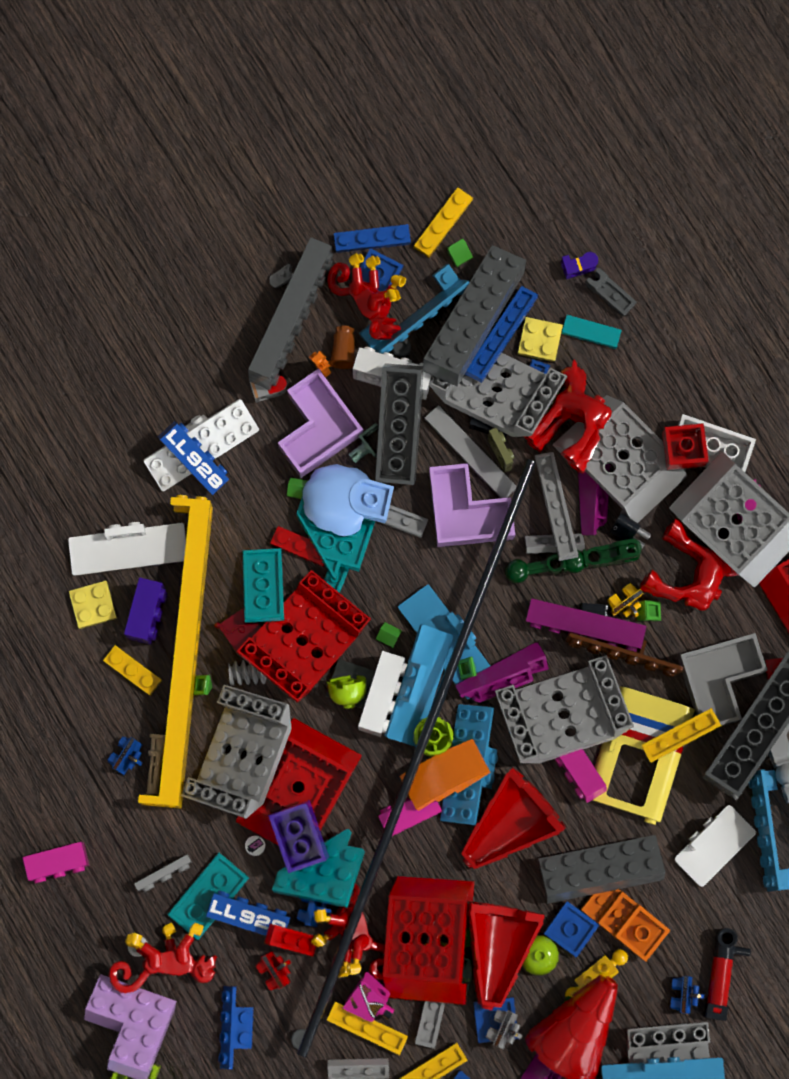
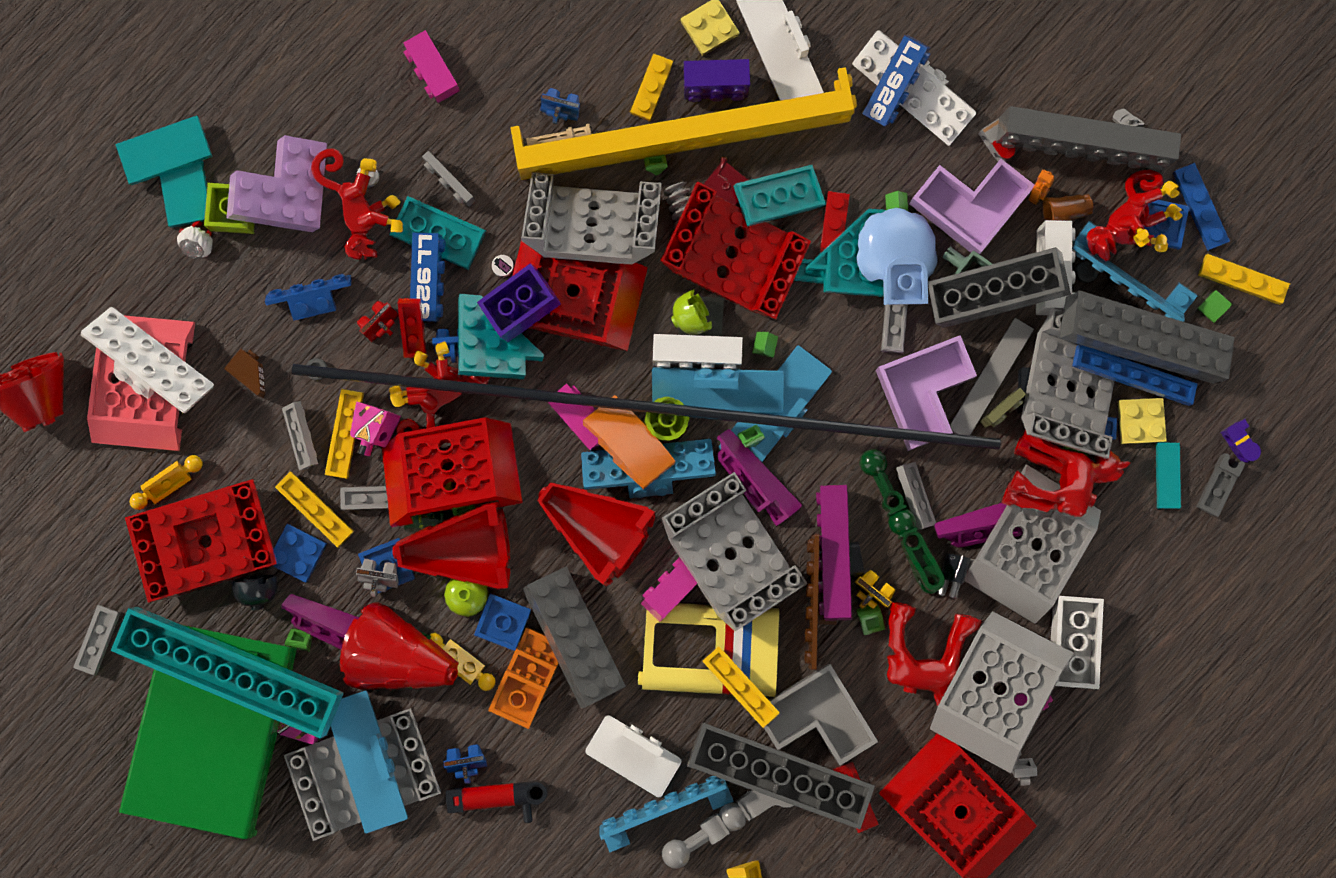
camera: 80 degrees right, 5 degrees up
(556, 506) = (957, 486): light grey tile -> none
(685, 446) = (1066, 609): red brick -> none

